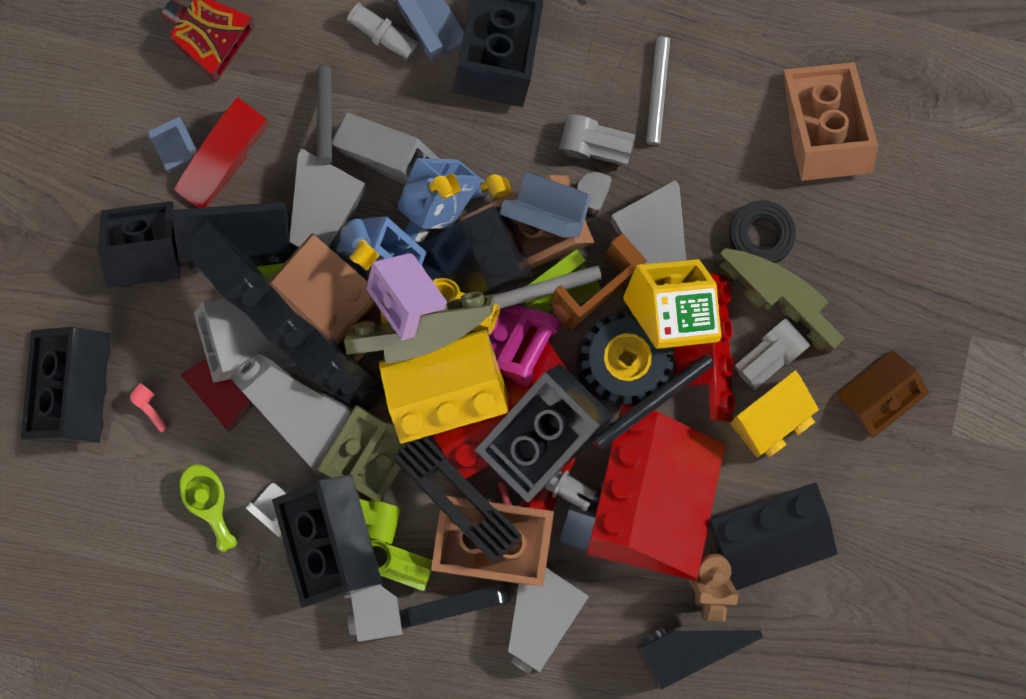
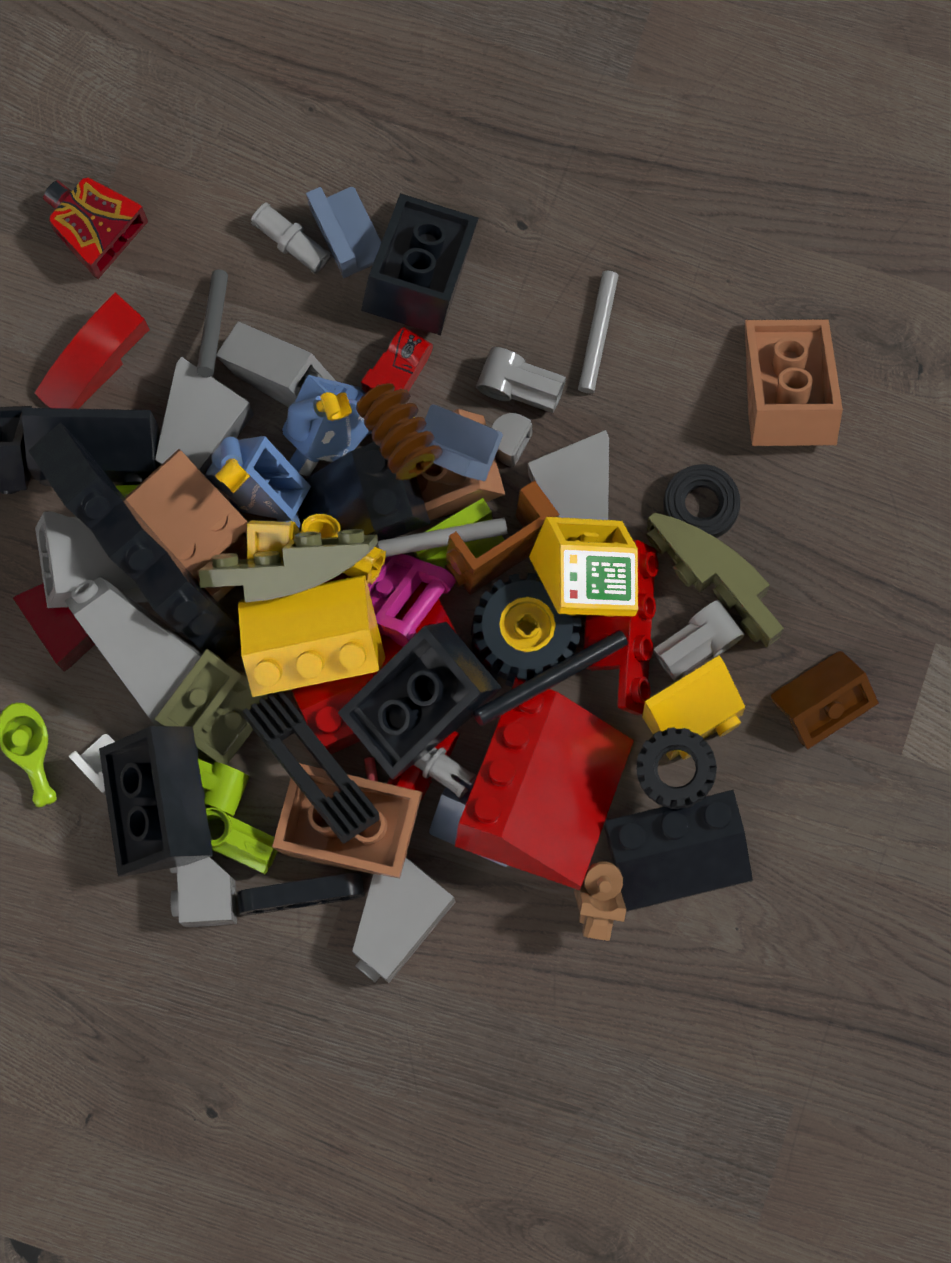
camera: 15 degrees right, 5 degrees down
(173, 144) = (38, 340): sand blue panel -> none
(403, 292) = (271, 519): lavender panel -> none
(488, 140) = (400, 362): none -> red leg
(502, 204) = (398, 431): none -> reddish brown piece
(682, 653) = (561, 972): black slope -> none
(792, 465) = (671, 740): none -> black tyre

